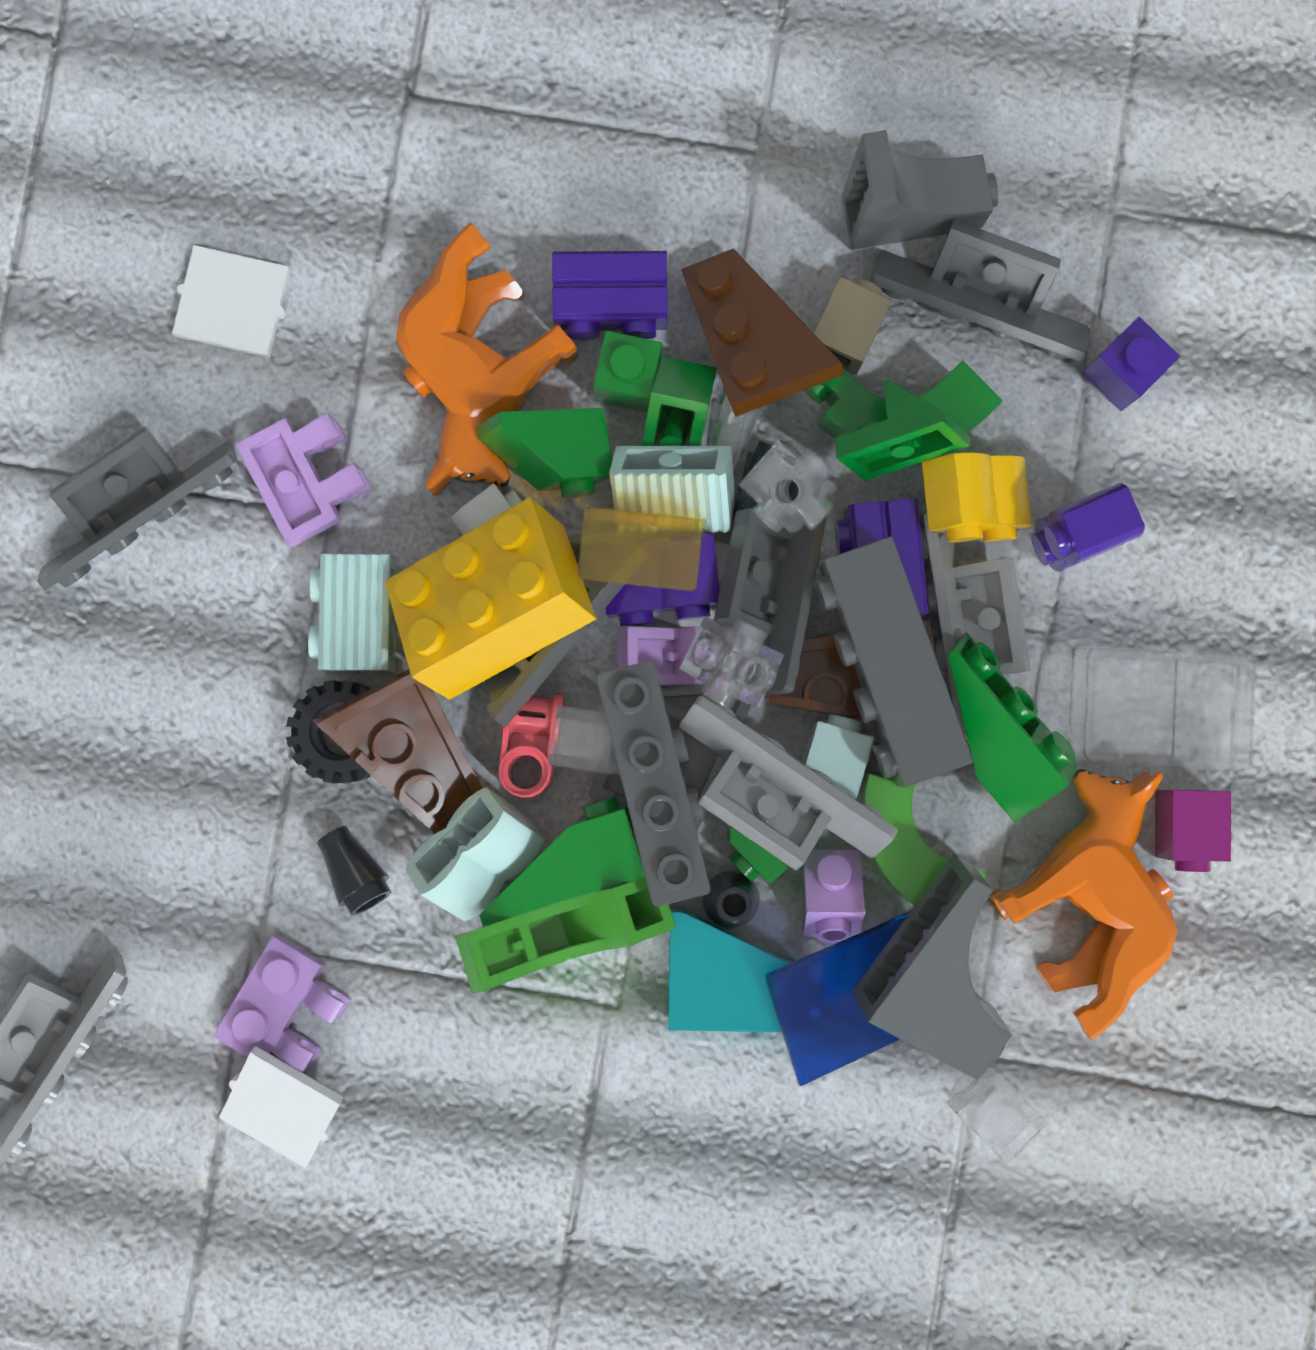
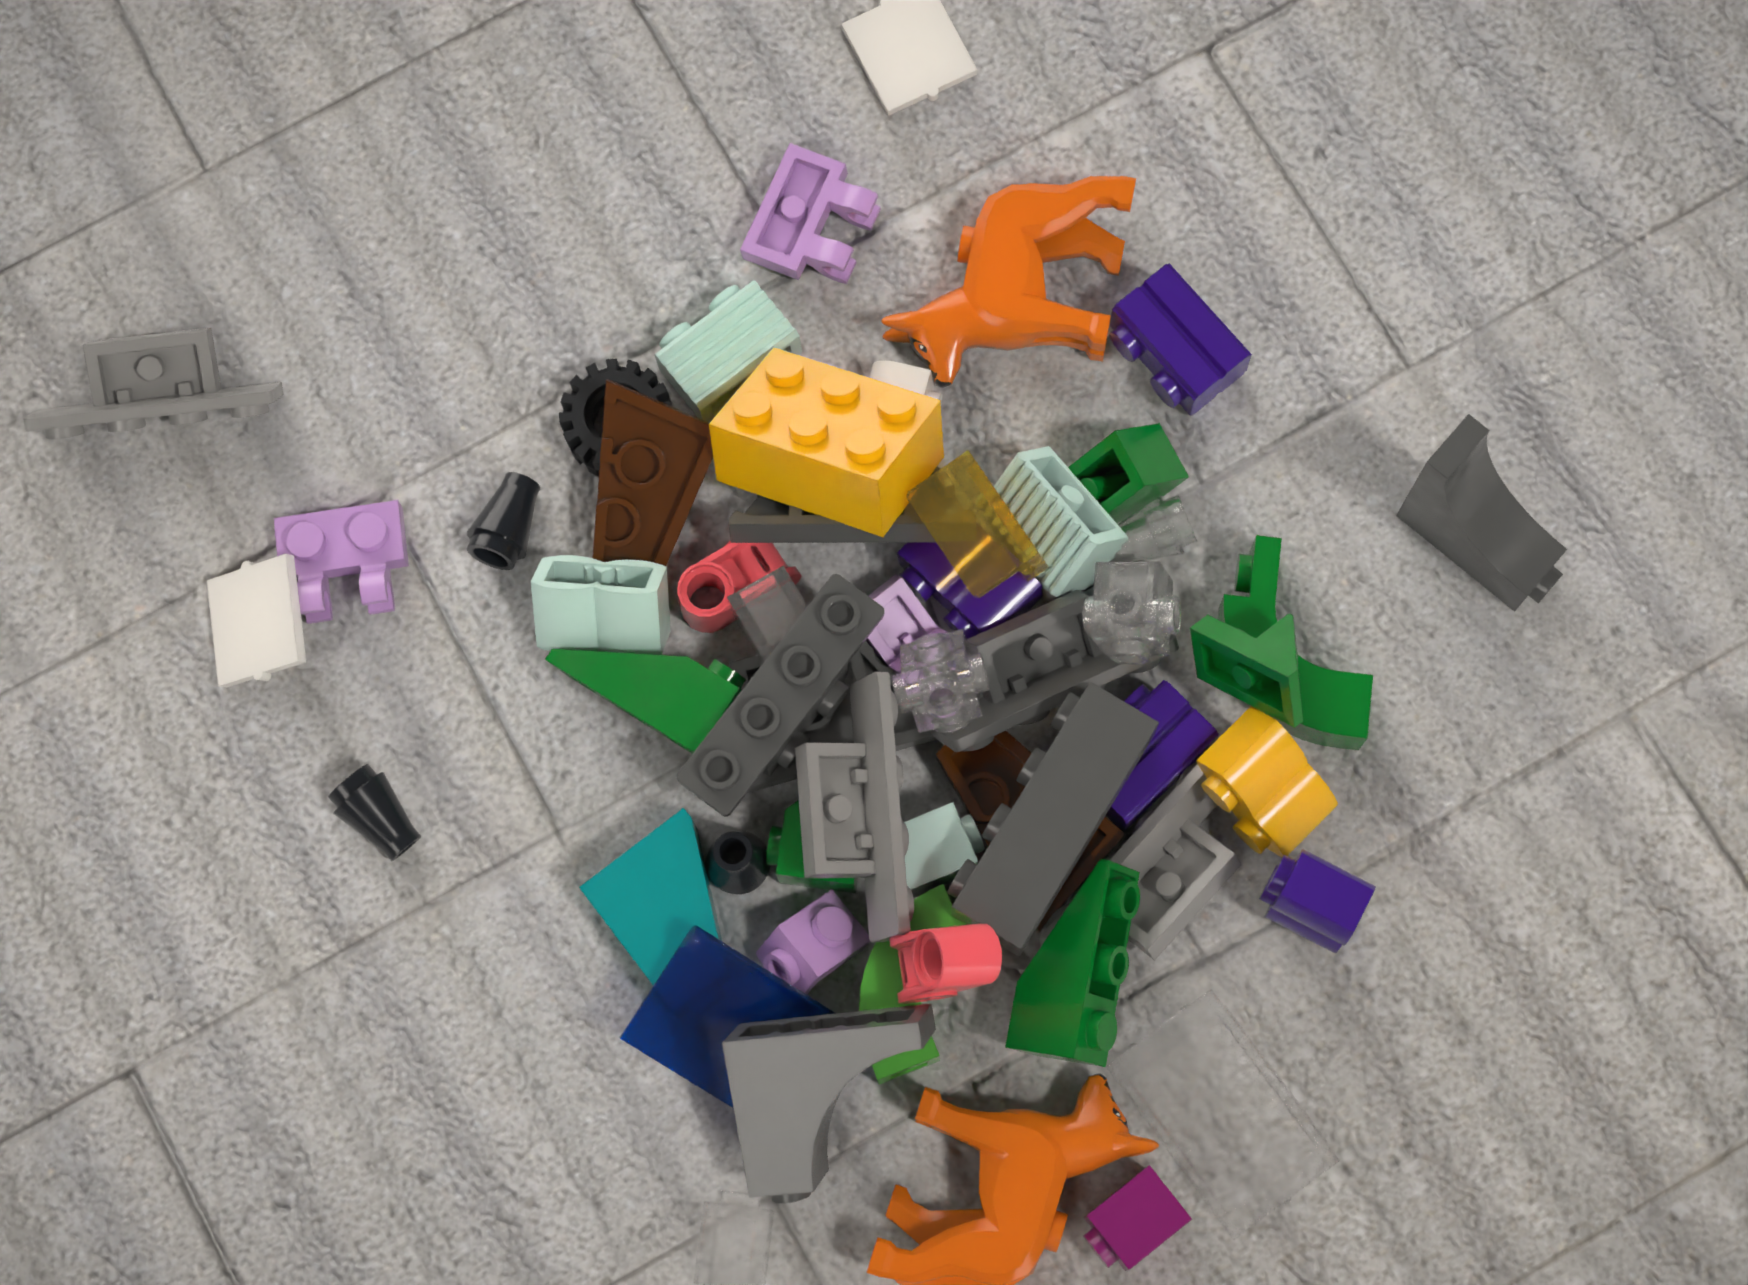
camera: 60 degrees right, 10 degrees down
(123, 494) = (672, 87): dark grey bracket -> none
(491, 1127) = (374, 811): none -> black cone
(552, 447) = (1002, 394): green slope -> none
(560, 933) = (590, 730): bright green arch -> none
(626, 371) = (1121, 400): green brick -> none
(754, 335) = (1240, 483): reddish brown wing -> none
(852, 321) = (1326, 559): dark tan brick -> none
(938, 820) = (946, 961): none -> coral piece
(988, 284) = (1462, 650): dark grey bracket -> none
(1130, 364) = (1500, 828): dark purple brick -> none

